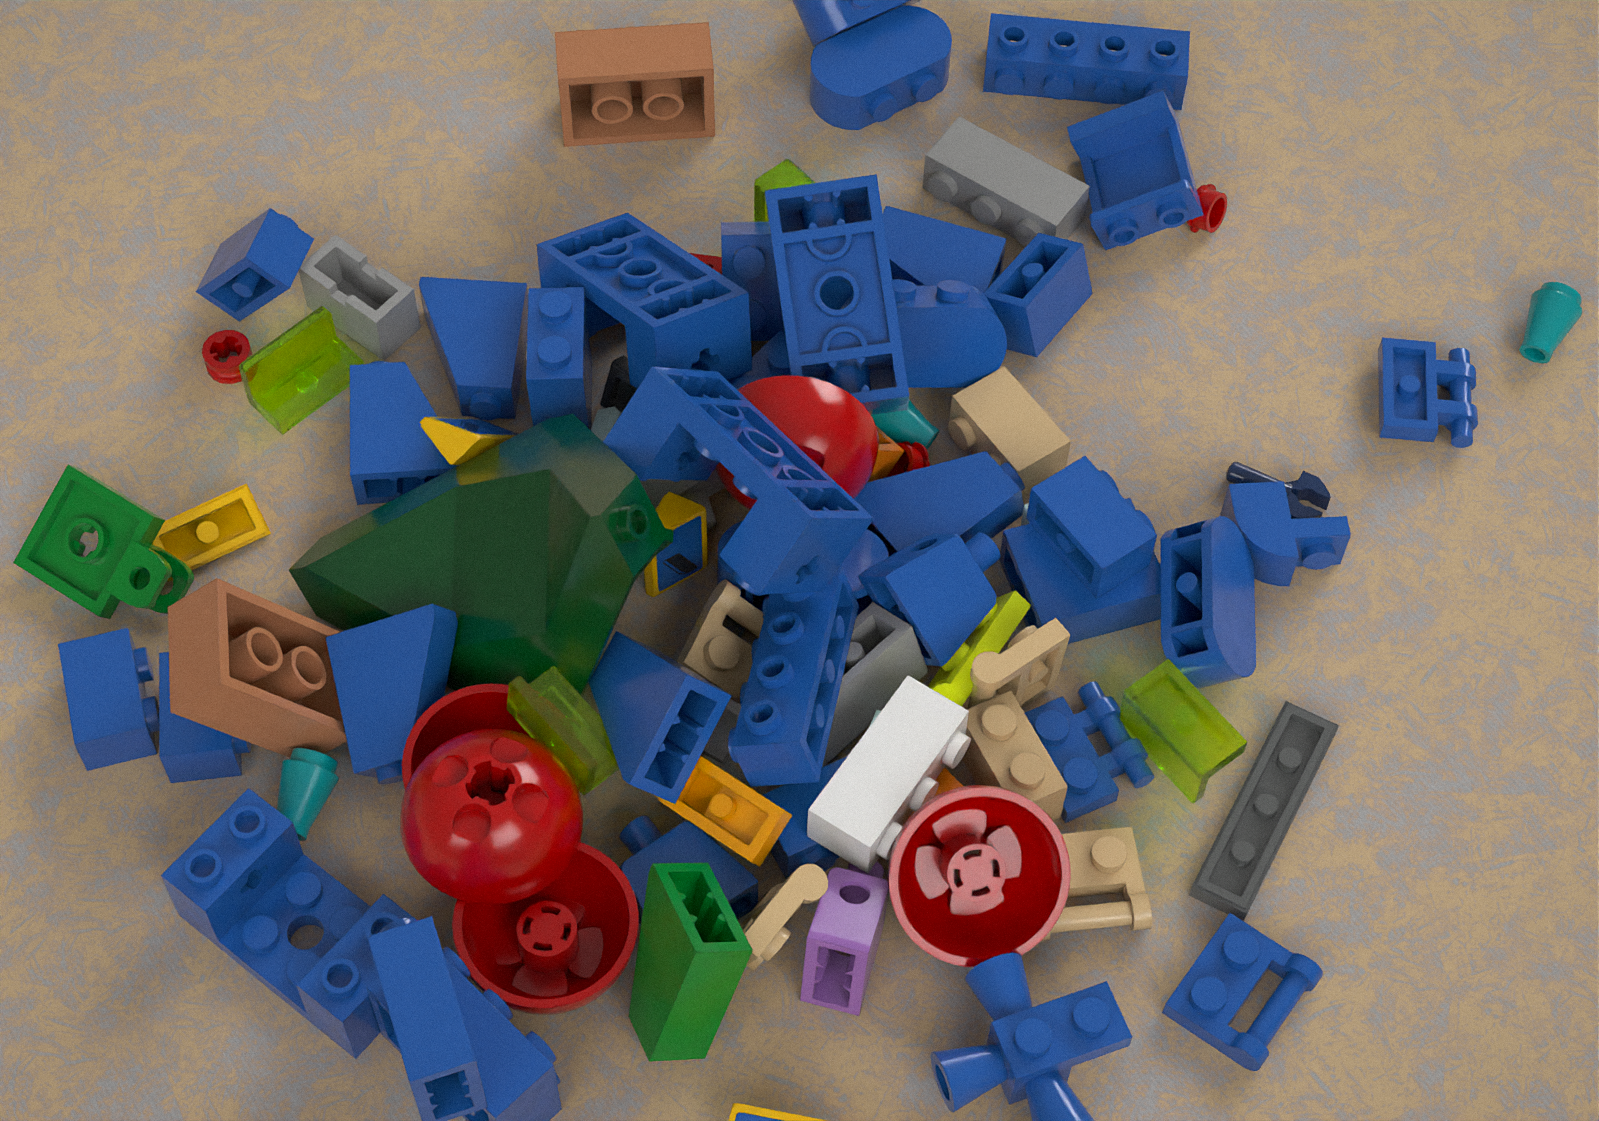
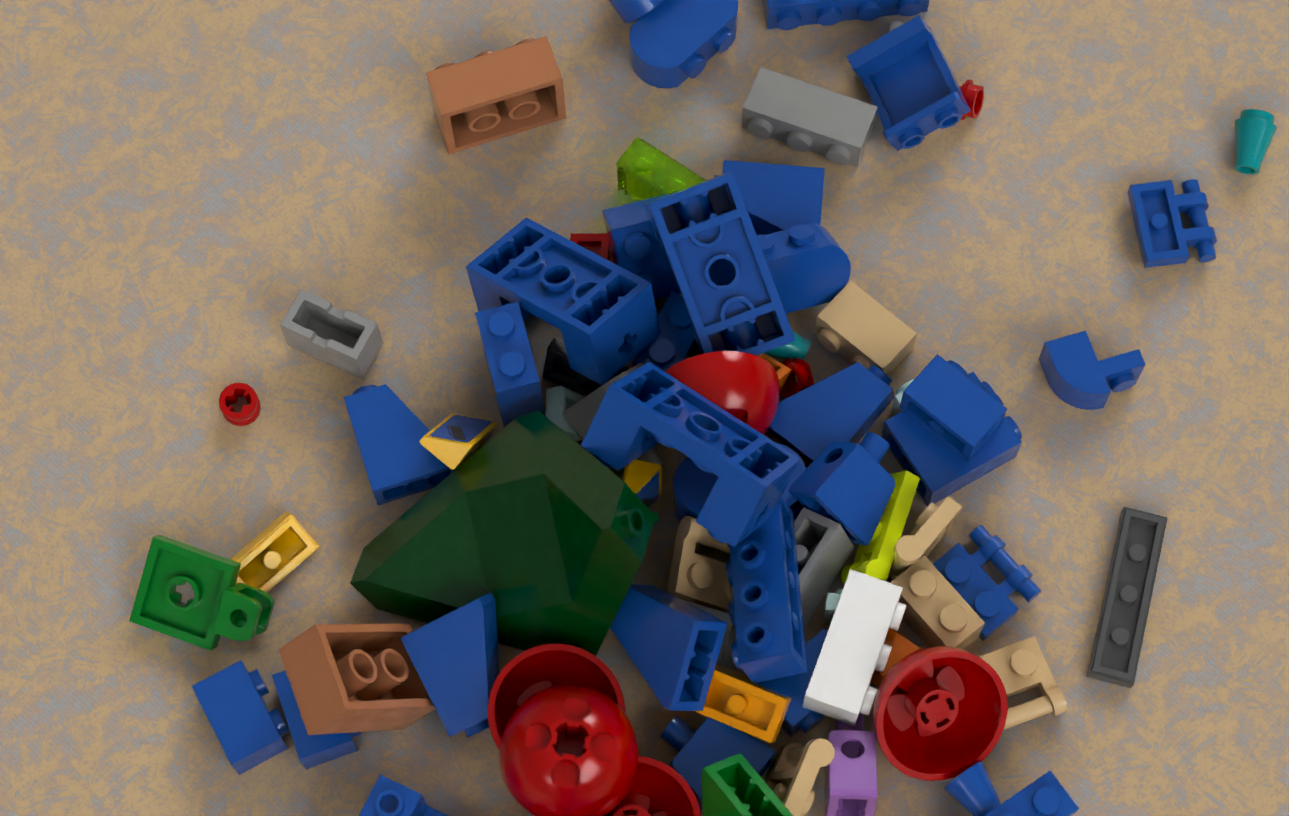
camera: 10 degrees left, 10 degrees up
(255, 264) = (243, 327): blue brick -> none
(298, 371) = (303, 406): clear neon green panel -> none
(305, 787) = (412, 755): teal cone -> none
(479, 340) = (434, 347): blue slope -> none
(566, 724) = (603, 668): clear neon green panel -> none
(1040, 292) = (861, 208): blue brick -> none
(1179, 729) = (1054, 552): clear neon green panel -> none
(1208, 602) = (1051, 445): blue brick -> none
(1226, 978) = (1129, 739): blue plate -> none
(1306, 488) = (1098, 324): dark blue bar -> none

